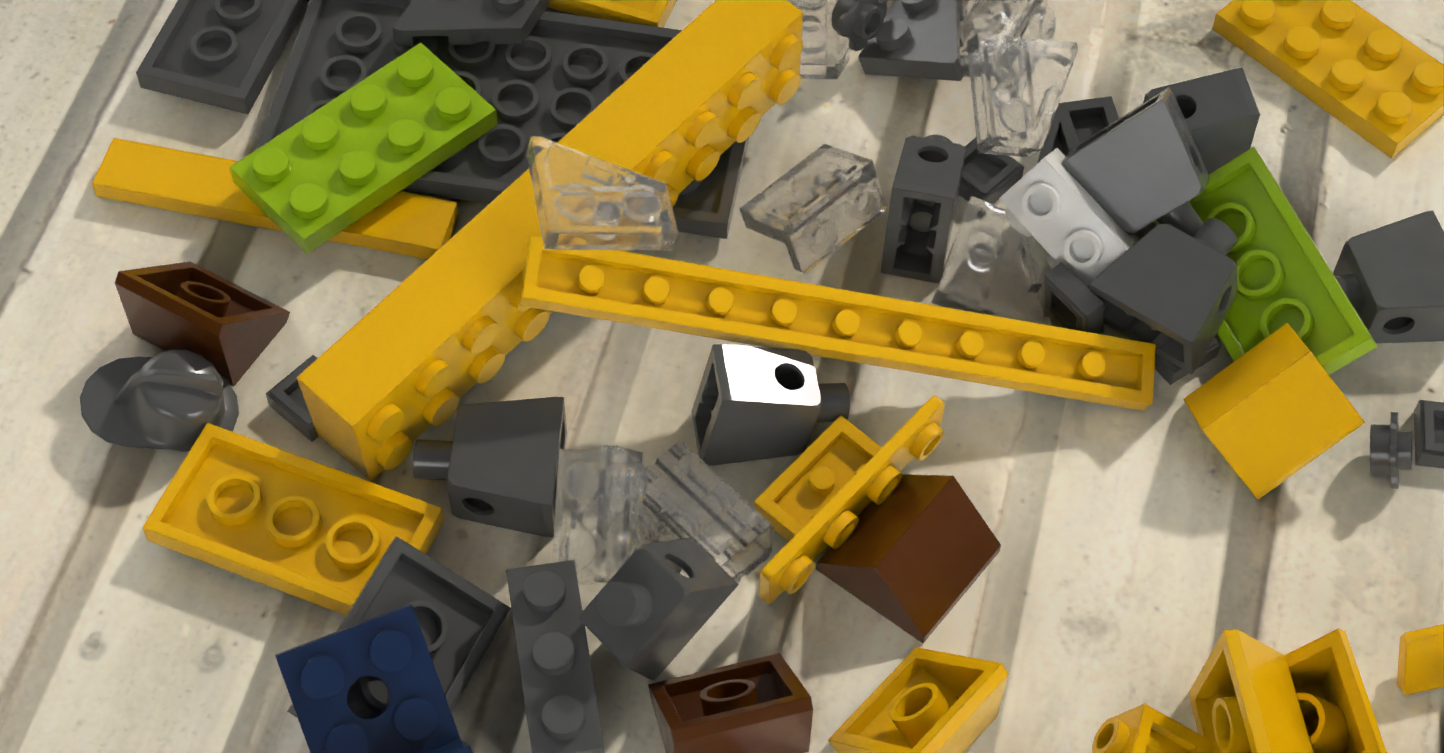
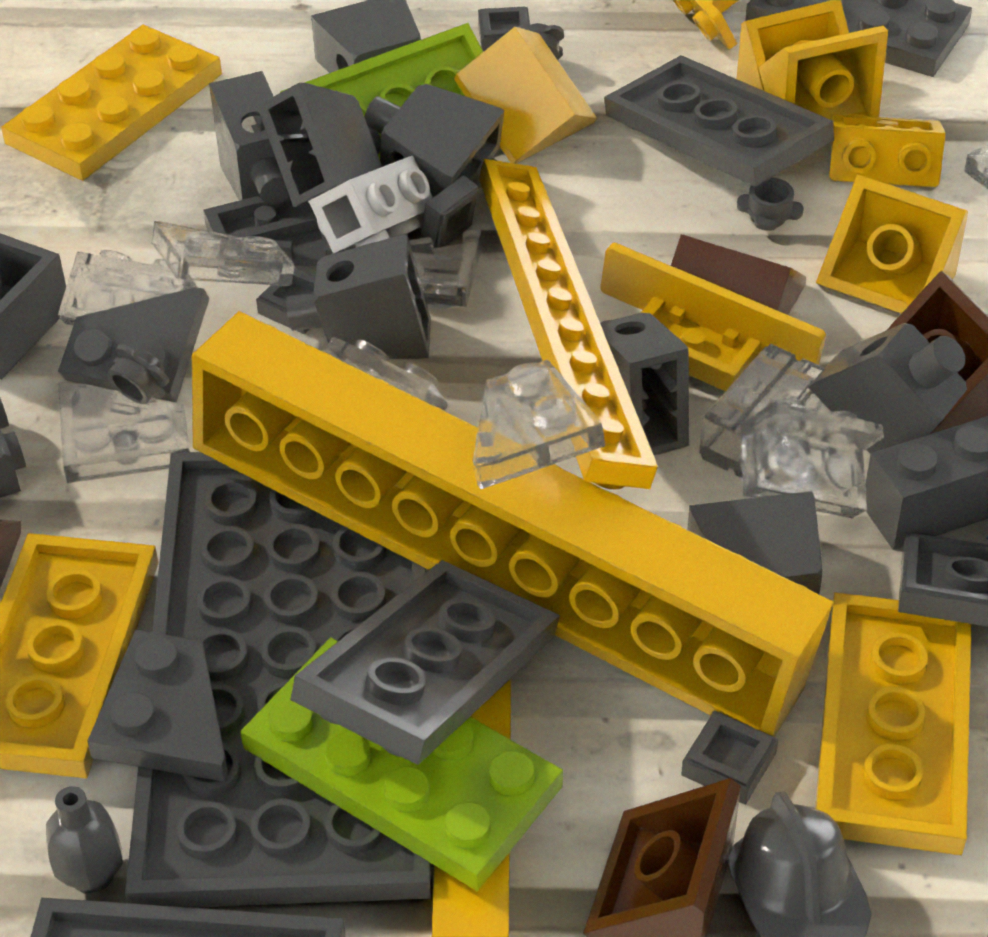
camera: 100 degrees left, 10 degrees down
(411, 136) = (425, 661): none -> dark grey plate
(1054, 613) = (770, 204): none -> dark grey plate
(1166, 602) = (719, 120): none -> dark grey plate

